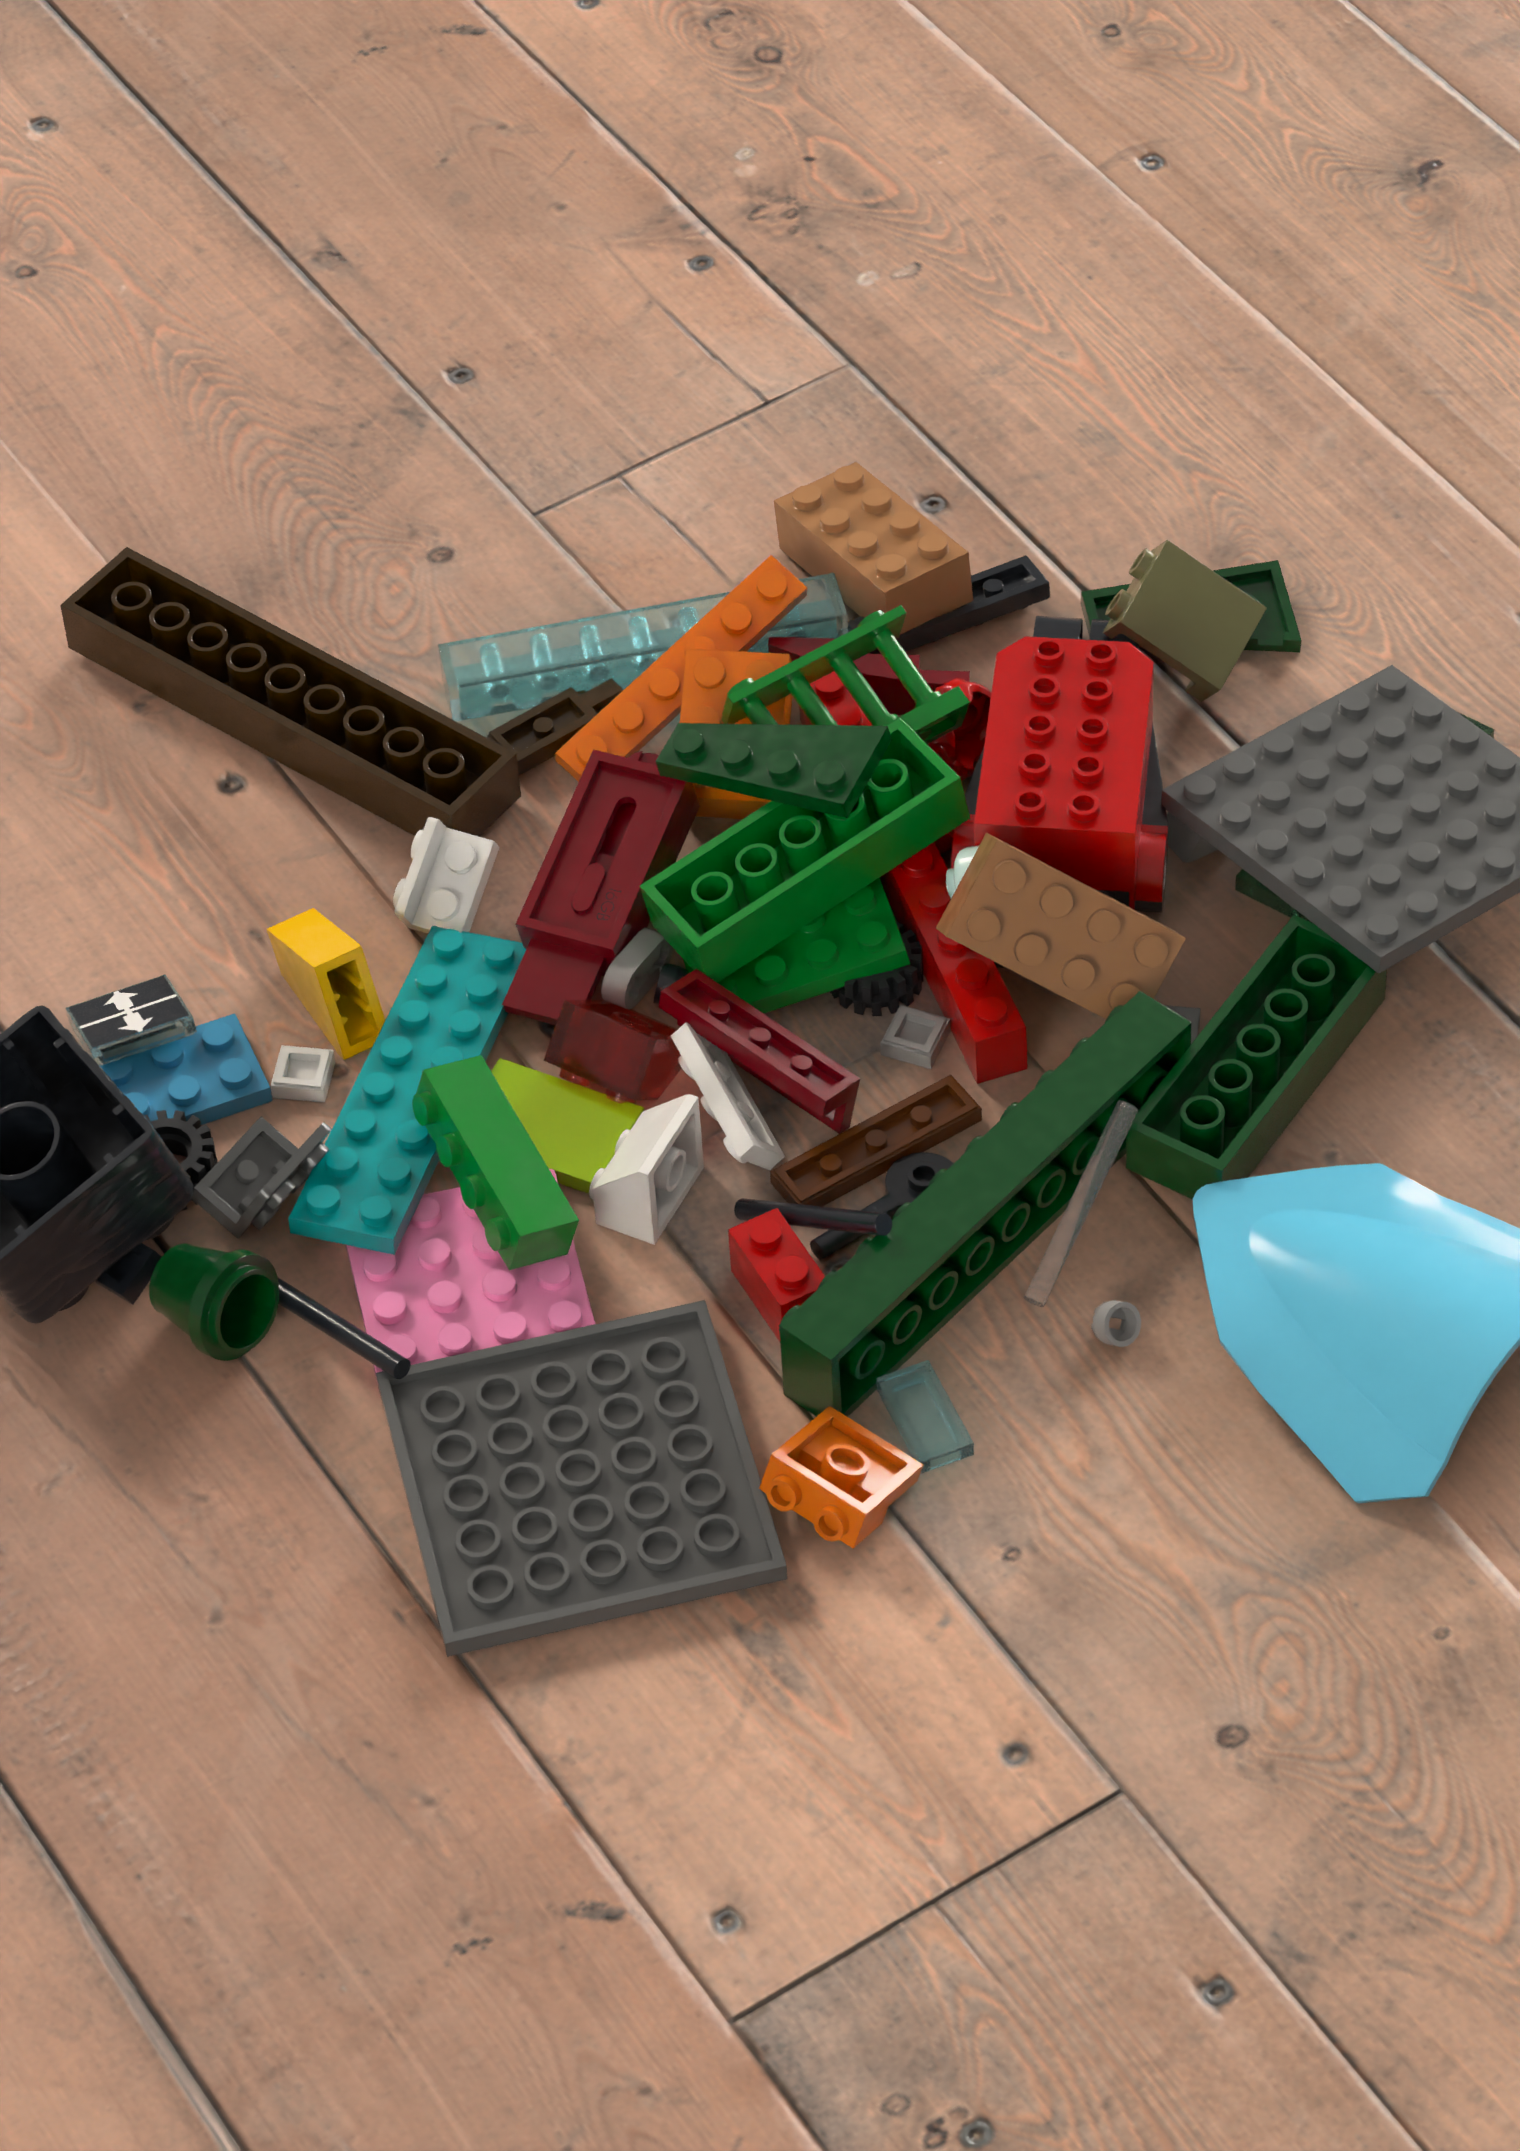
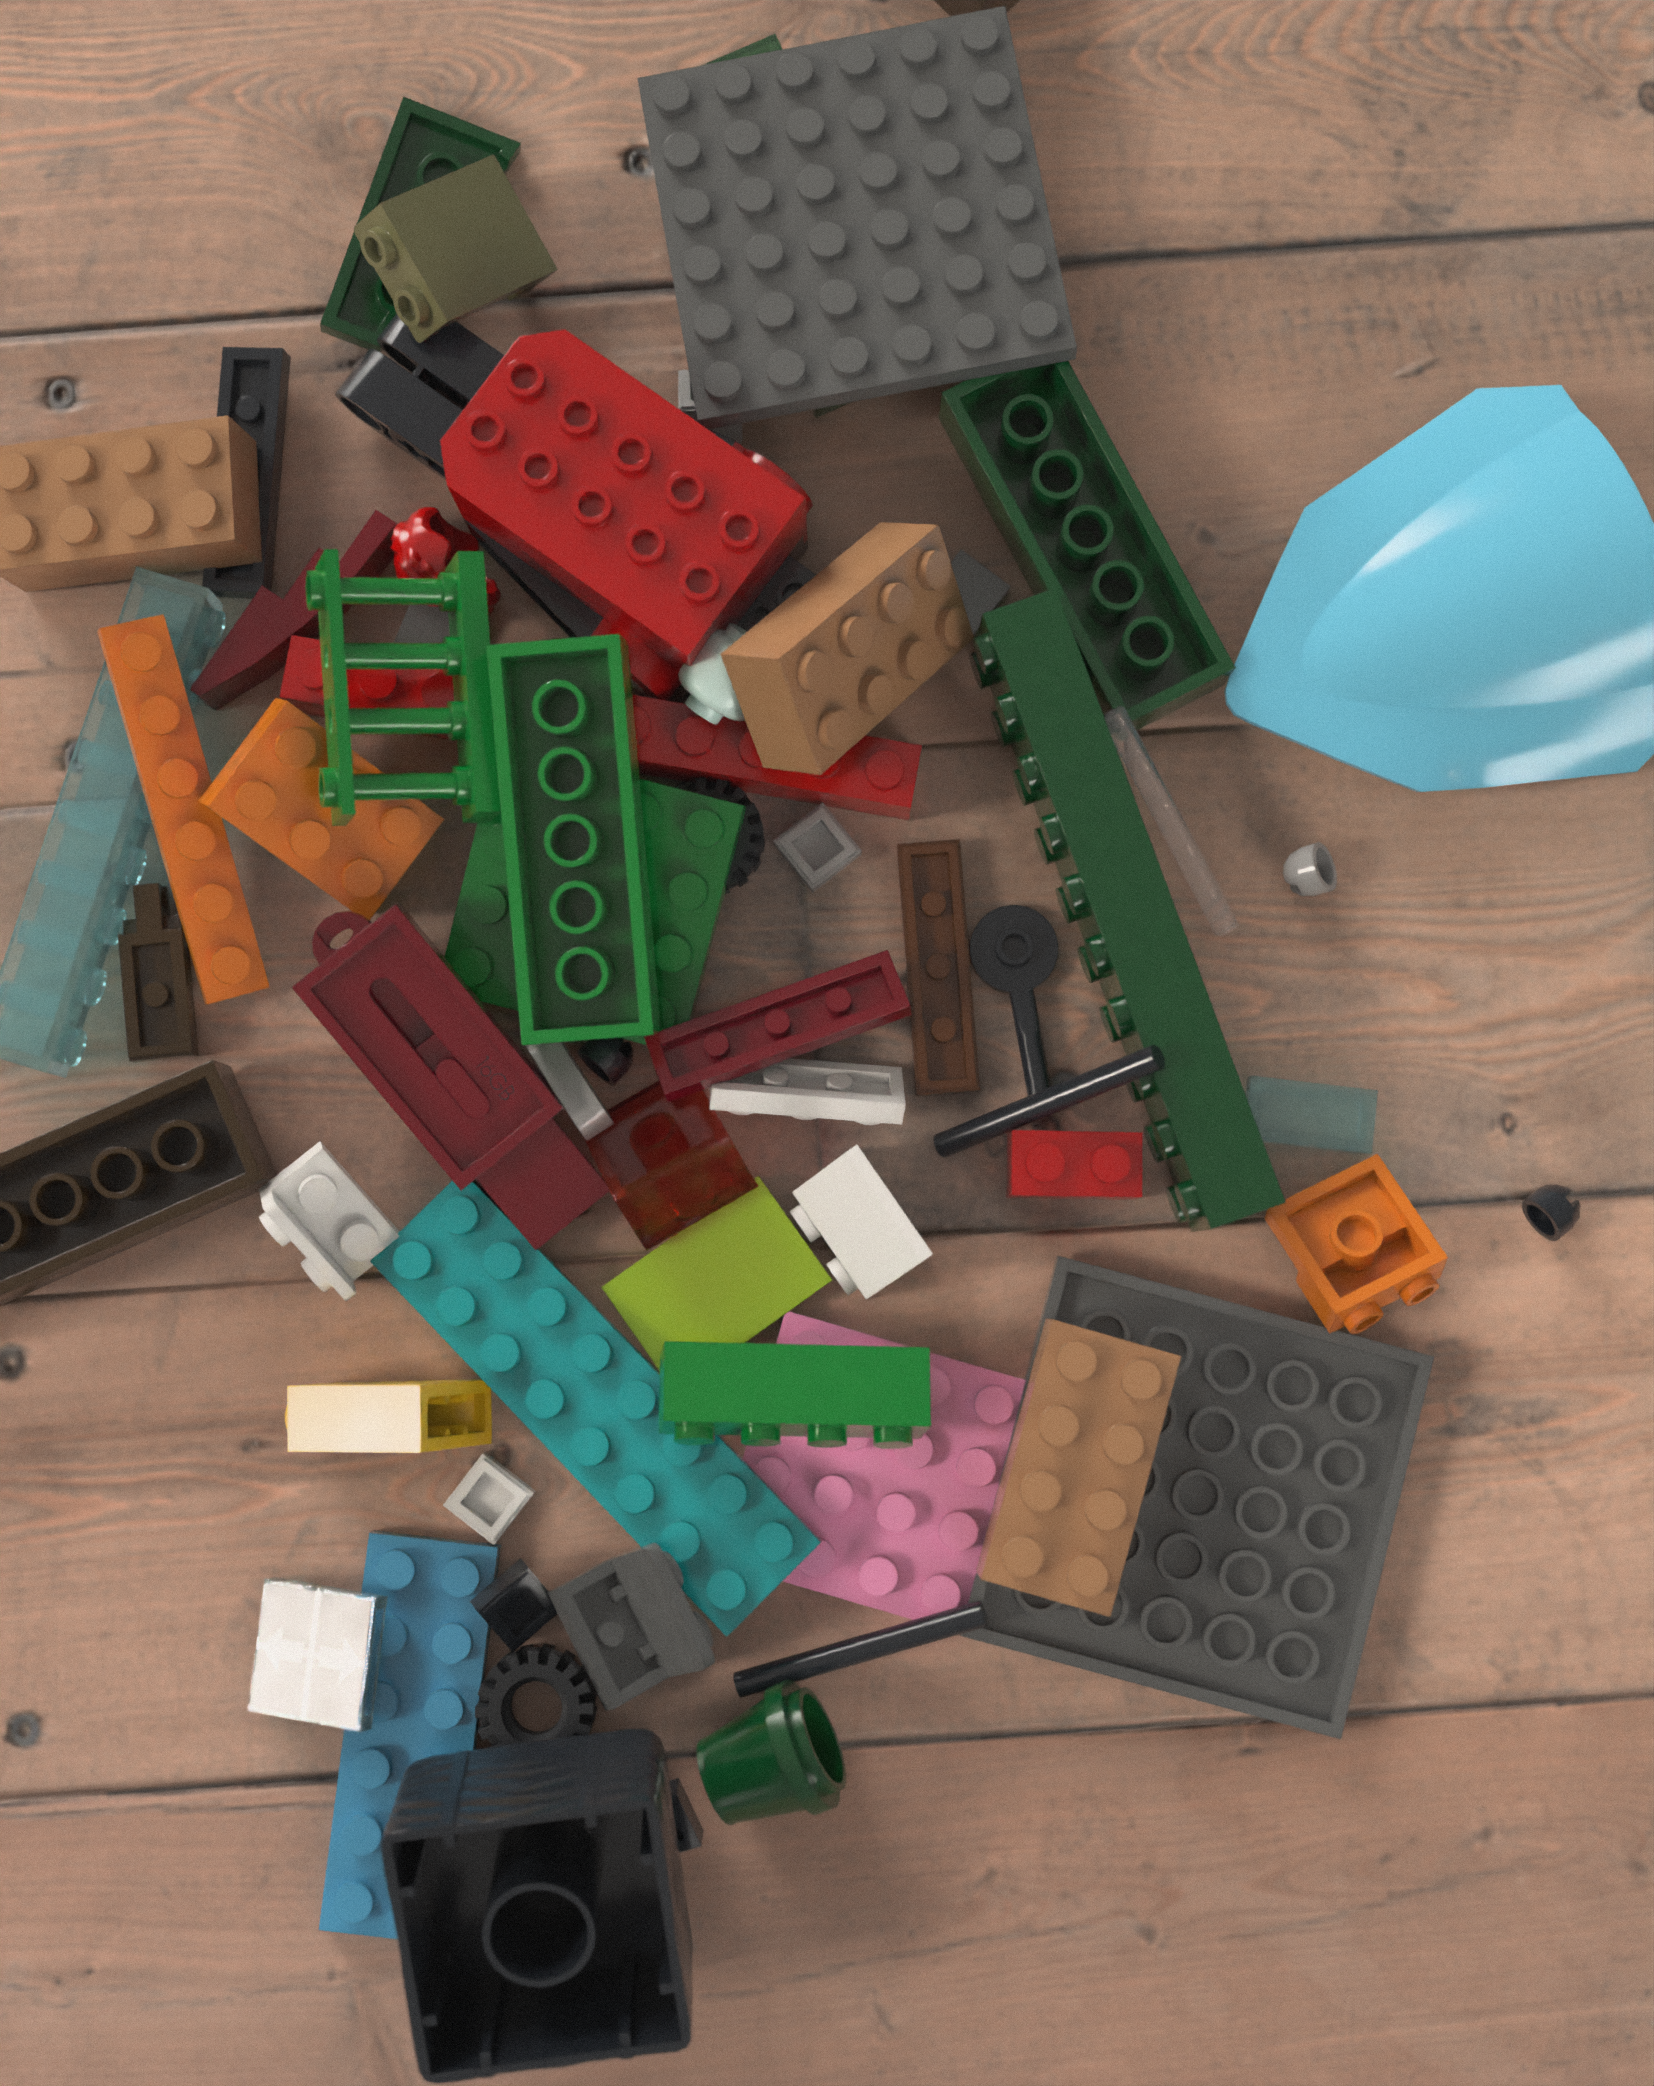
camera: 65 degrees left, 35 degrees up
(233, 1110) = (515, 1605): none -> black tile
(551, 1359) = (1078, 1467): none -> medium nougat brick
(787, 764) = (469, 802): dark green wing -> none
(960, 1600) = (1551, 1212): none -> black hinge

